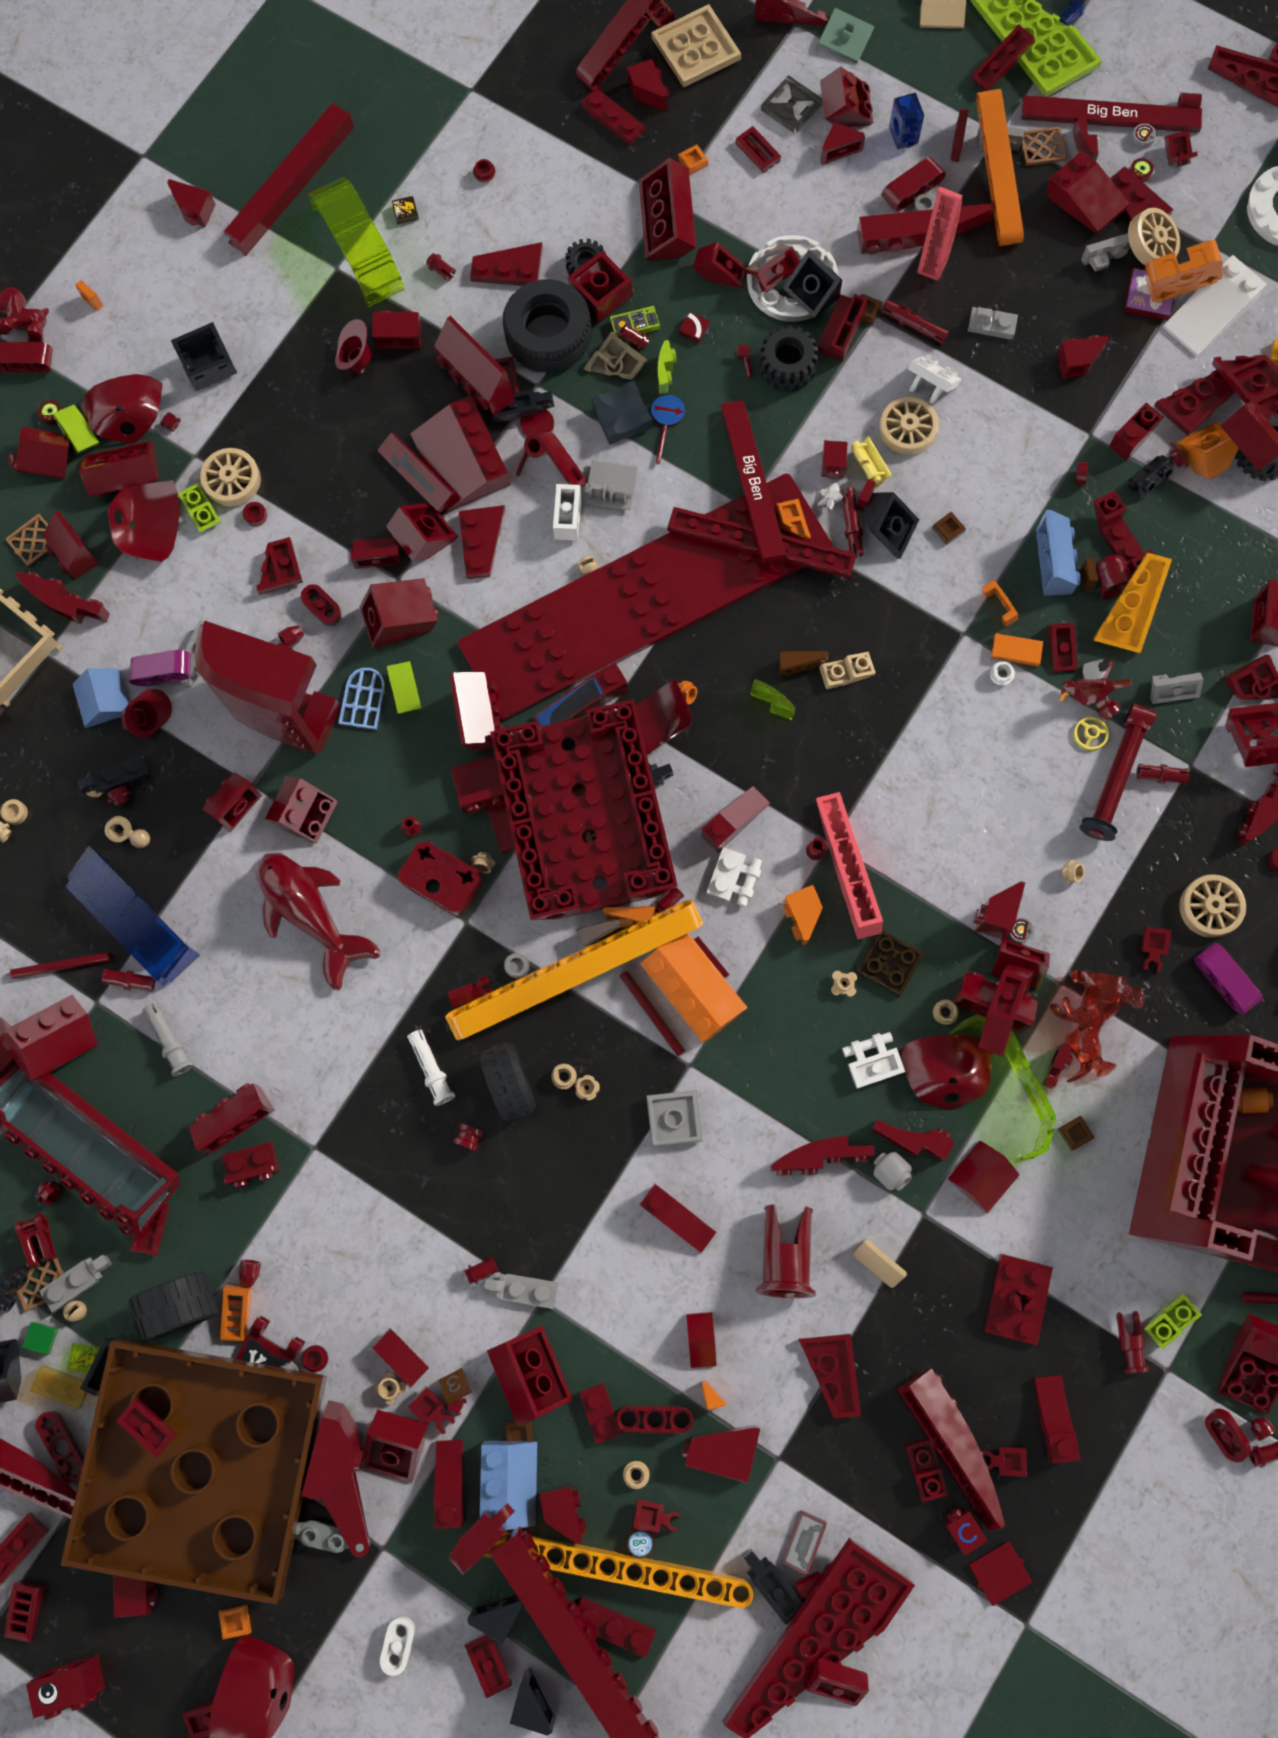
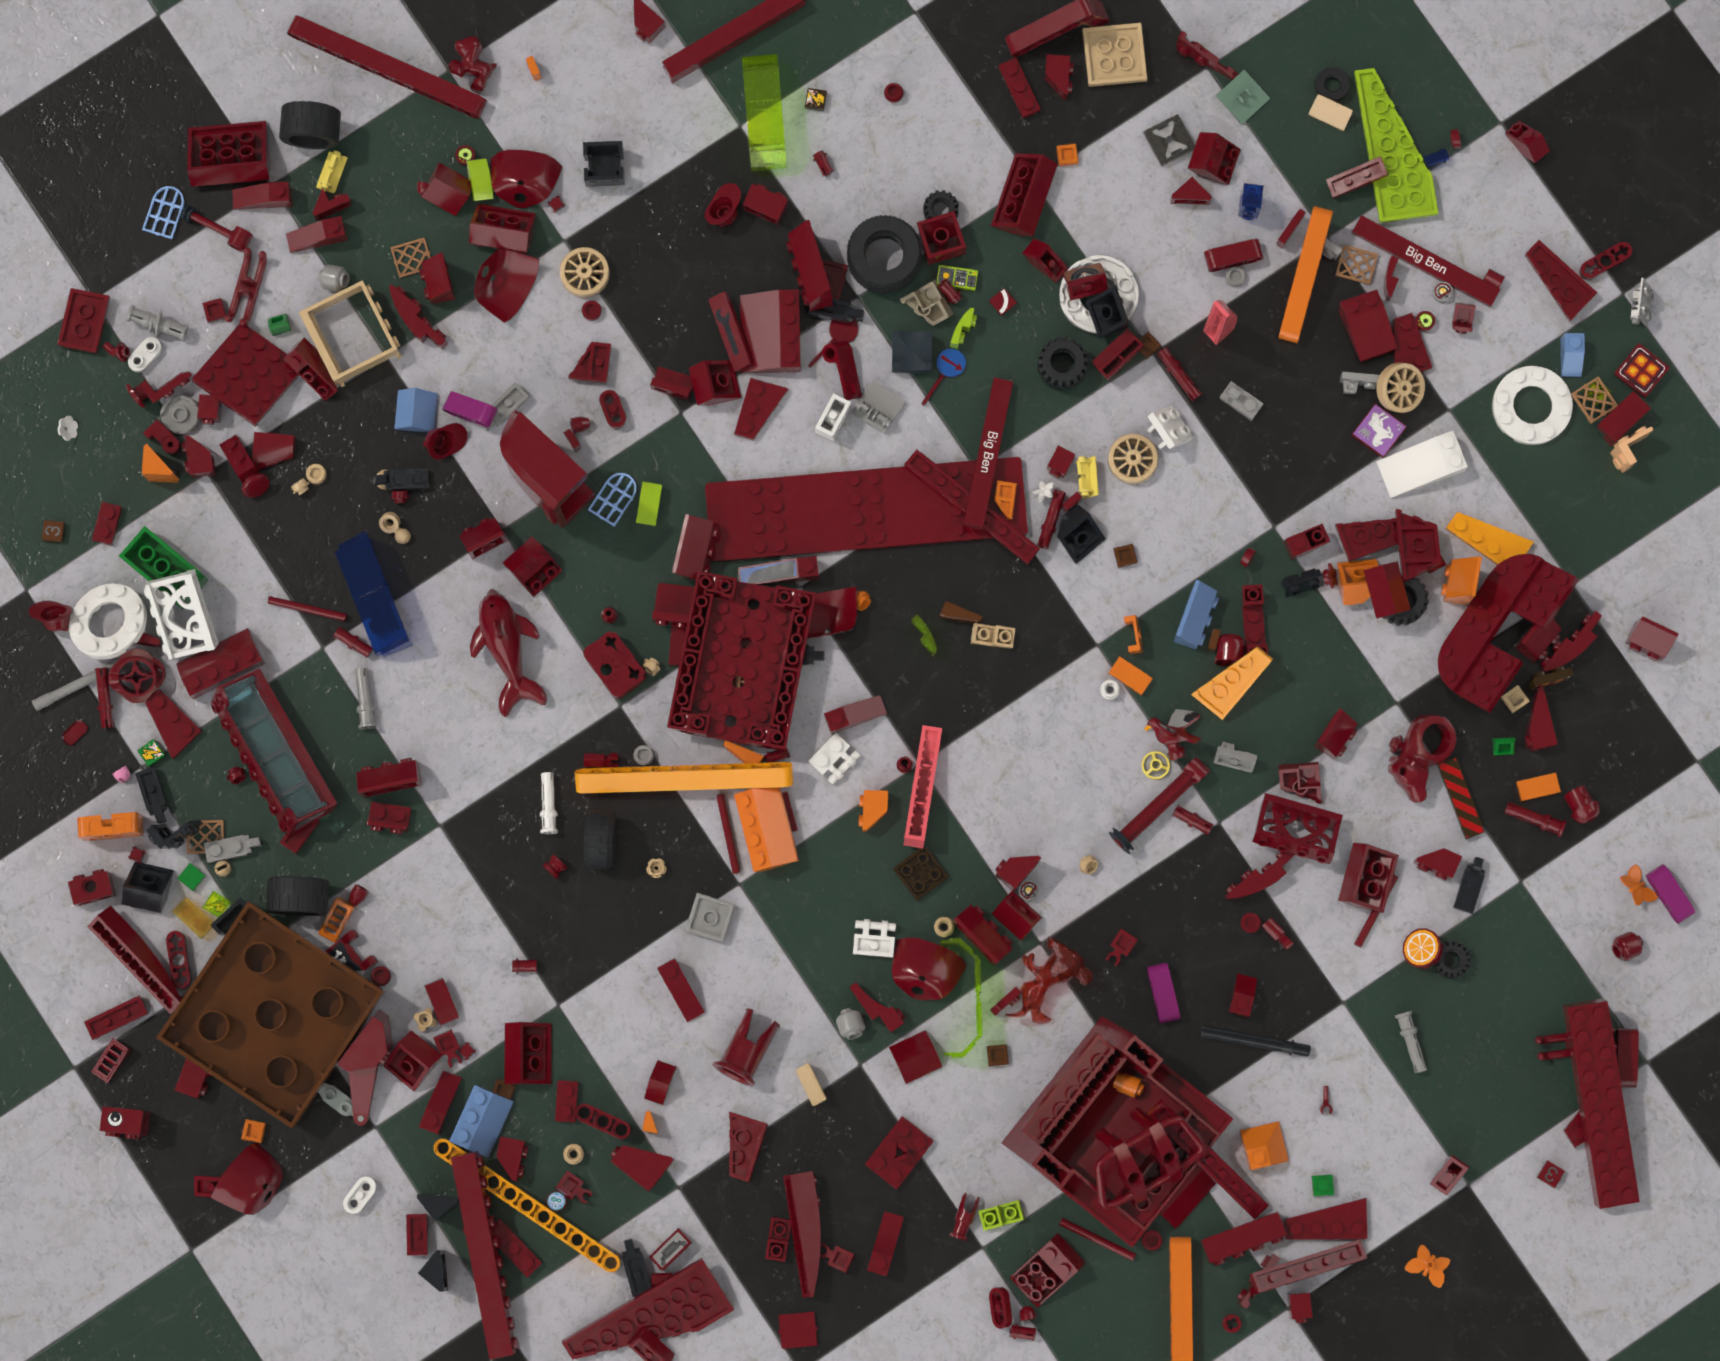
camera: 20 degrees right, 5 degrees up
(33, 1230) = (211, 798): dark red piece -> none
(50, 1038) = (282, 663): dark red slope -> none
(146, 1427) = (250, 970): dark red plate -> none
(199, 507) = (550, 287): lime slope -> none
(397, 611) = (669, 441): dark red slope -> none
(455, 1386) = (472, 1038): reddish brown tile -> none
(480, 1538) = (447, 1145): dark red piece -> none
(508, 266) = (878, 185): dark red wing -> none
(524, 1290) = (549, 993): light grey hinge -> none
(556, 1074) = (636, 852): tan plate -> none
(588, 568) = (829, 469): tan hinge -> none
(597, 932) = (709, 756): reddish brown slope -> none
(744, 353) = (1032, 342): dark red hand -> none
(754, 152) = (1128, 184): dark red tile -> none
(810, 1156) = (795, 988): dark red slope -> none
(838, 988) = (880, 879): tan plate -> none
(909, 229) = (1205, 292): dark red slope -> none
(964, 1530) = (785, 1289): dark red brick -> none
(1003, 1009) = (981, 939): dark red slope -> none
(1062, 647) = (1166, 688): dark red slope -> none
(1079, 355) = (1295, 460): dark red slope -> none
(1169, 279) = (1415, 432): orange axle -> none
(1213, 906) = (1180, 935): tan wheel -> none

